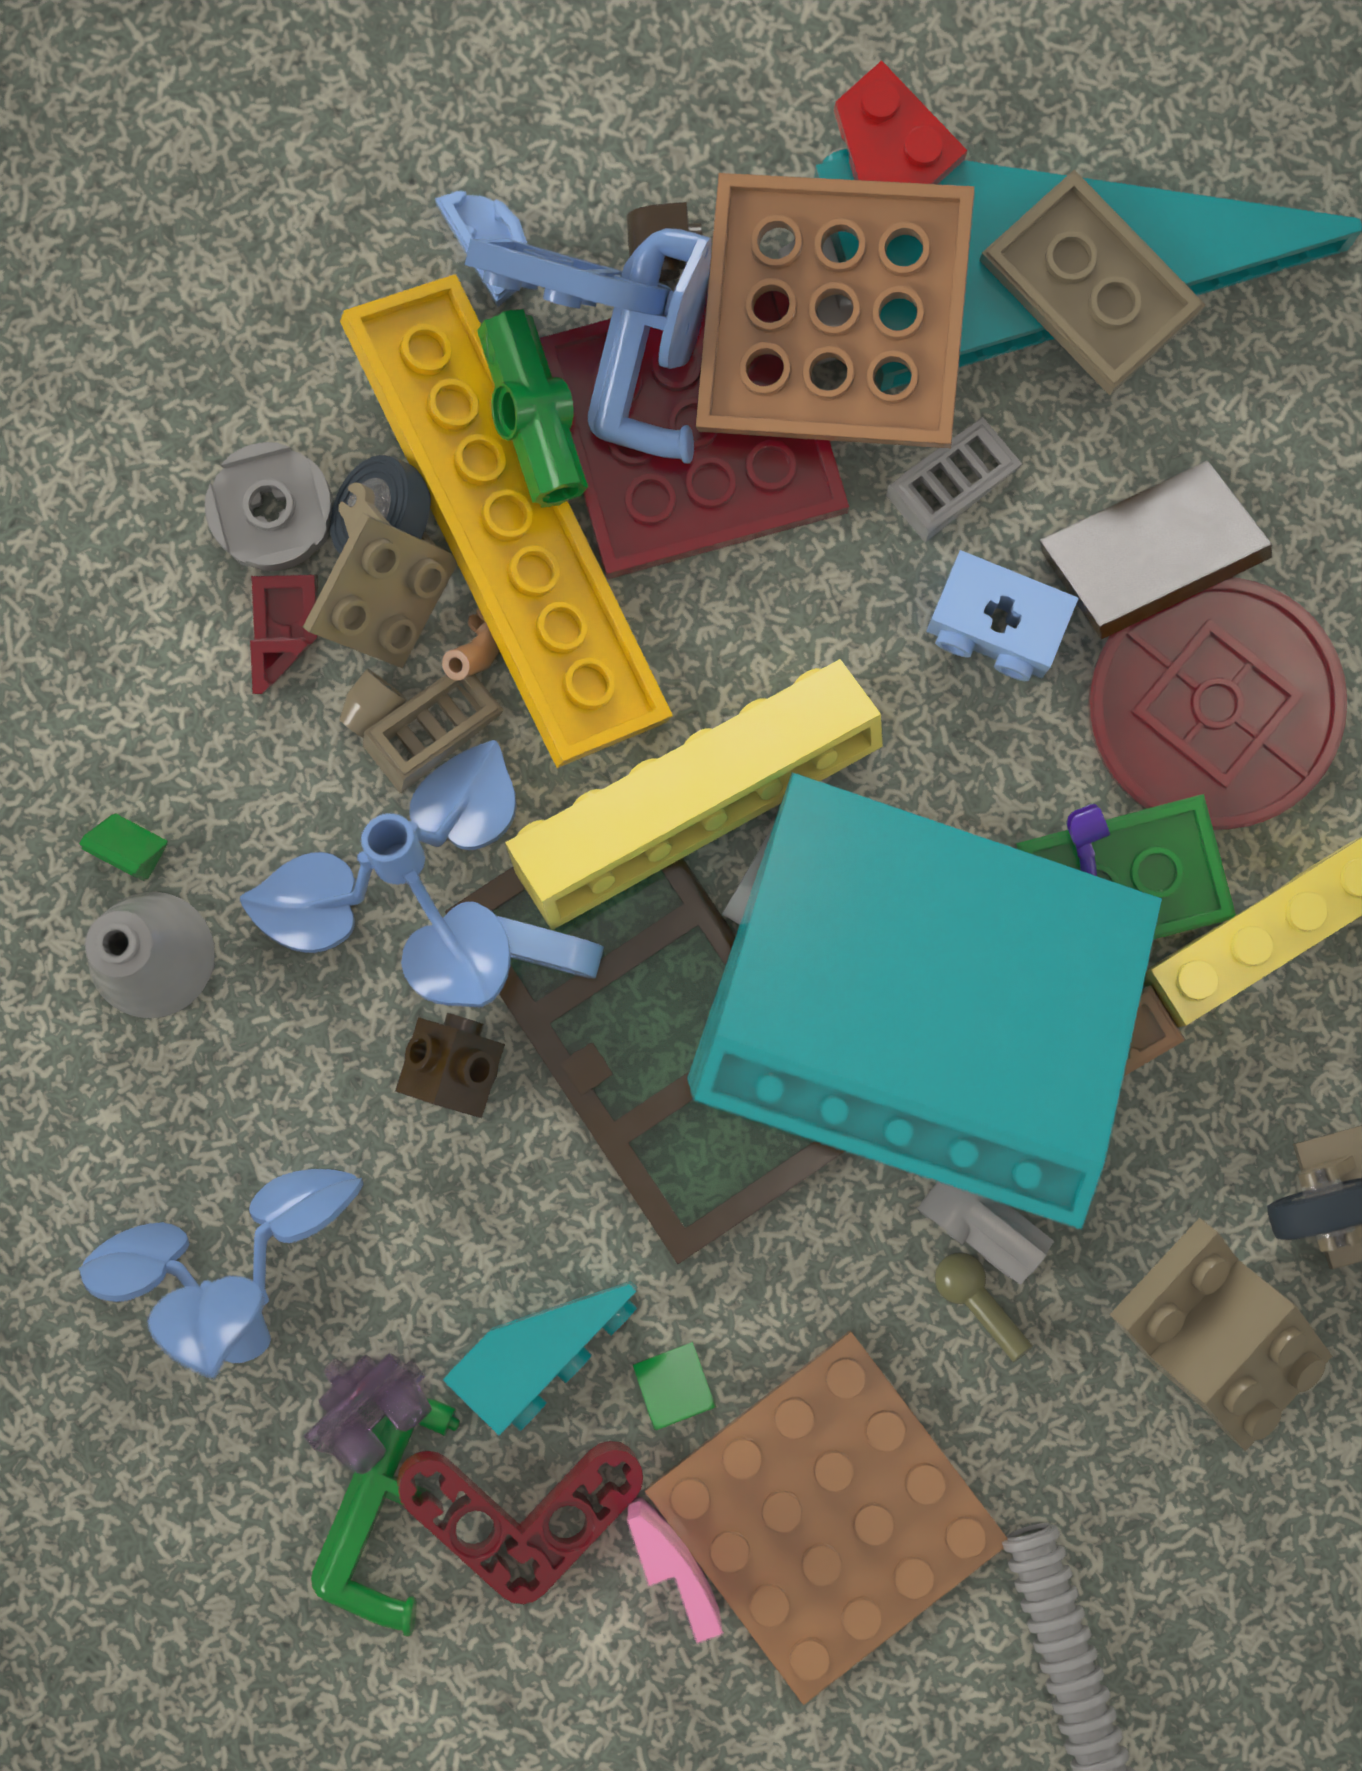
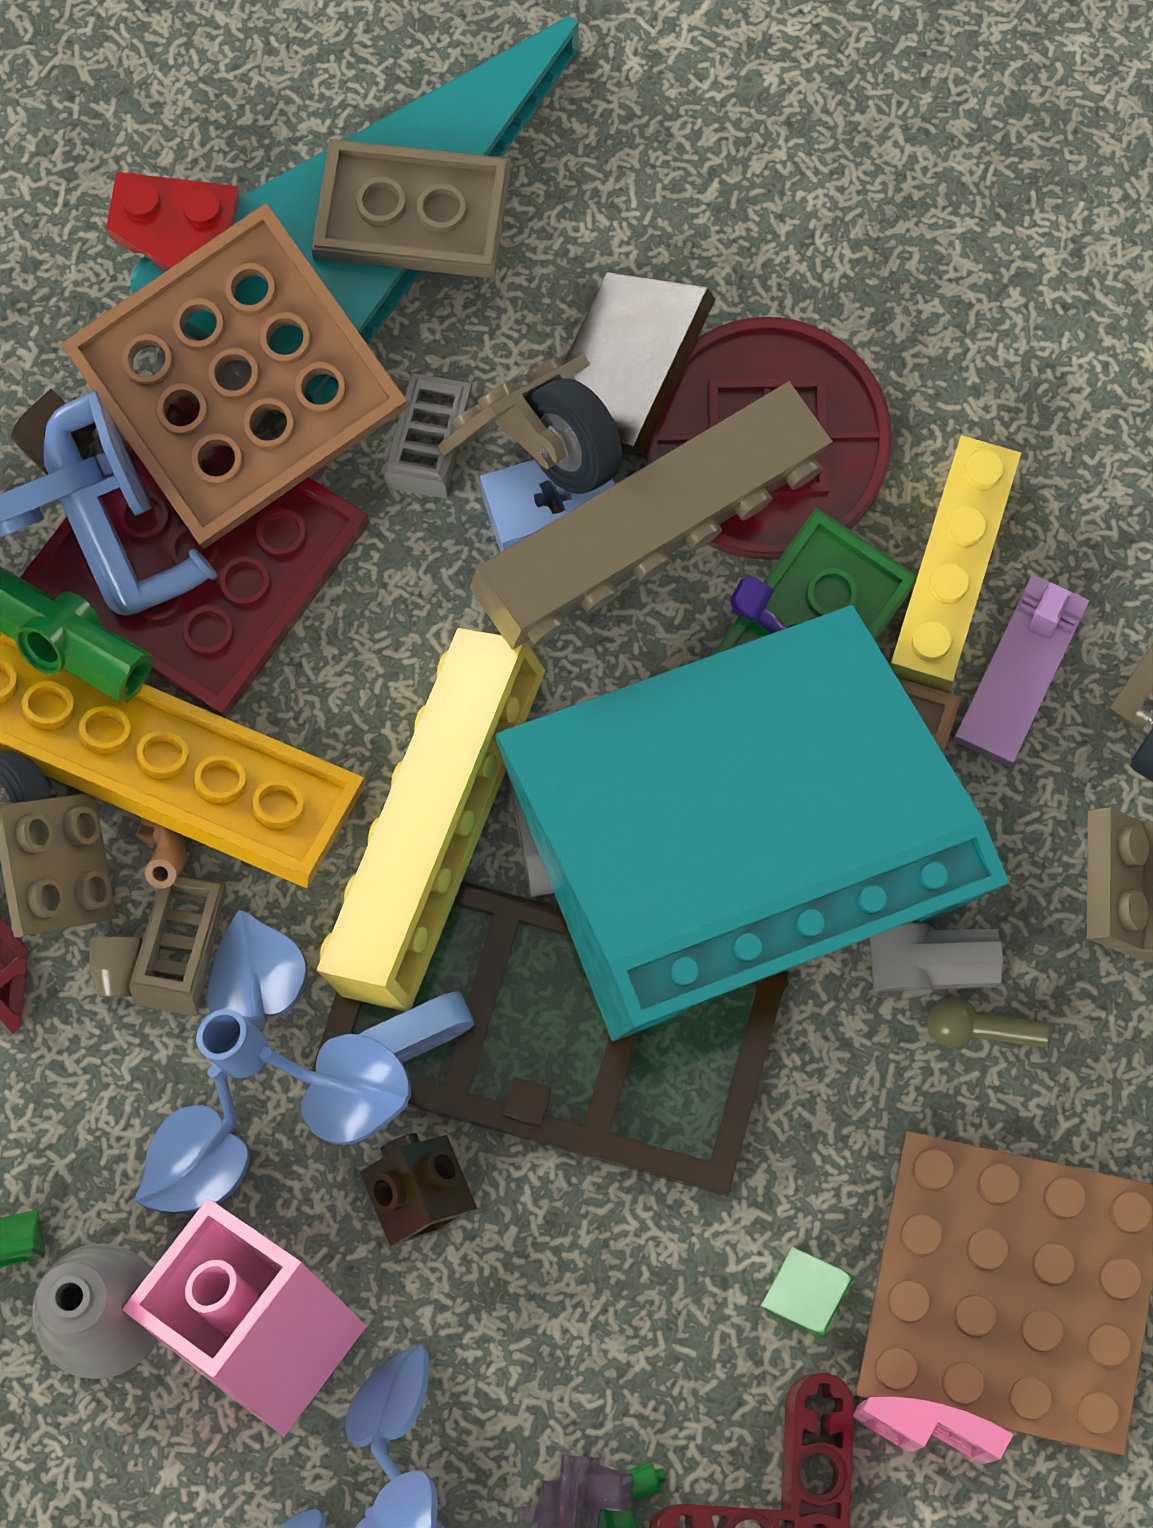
camera: 40 degrees left, 10 degrees down
(240, 1057) = (245, 1316): none -> bright pink slope
(521, 1357) = (669, 1373): teal slope -> none
(1048, 563) = (554, 421): none -> plate
(1064, 698) = (650, 516): none -> dark tan brick
(1254, 1055) = (1021, 671): none -> lavender hinge

